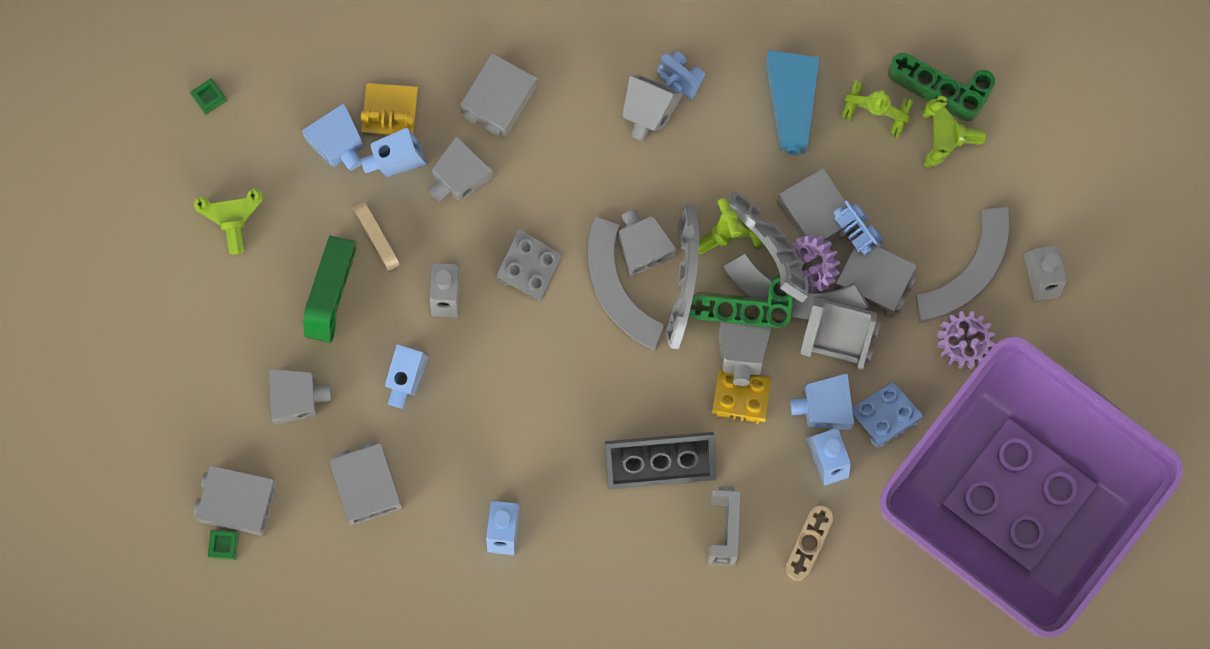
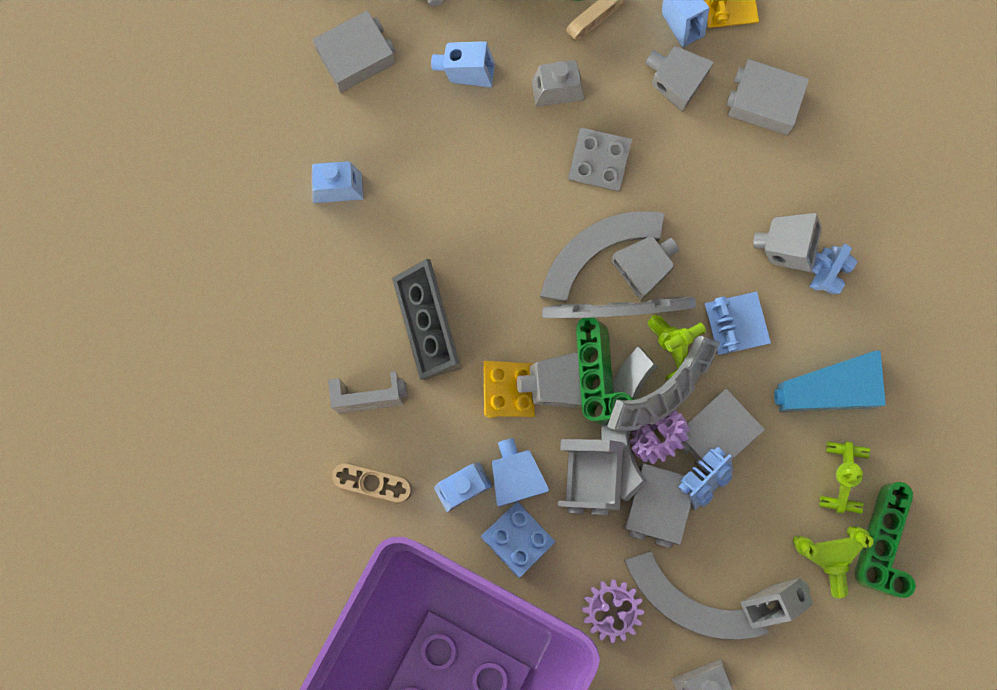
camera: 80 degrees right, 5 degrees up
(715, 171) = (737, 323): none -> light blue hinge
(979, 182) = (790, 601): none -> light grey torso

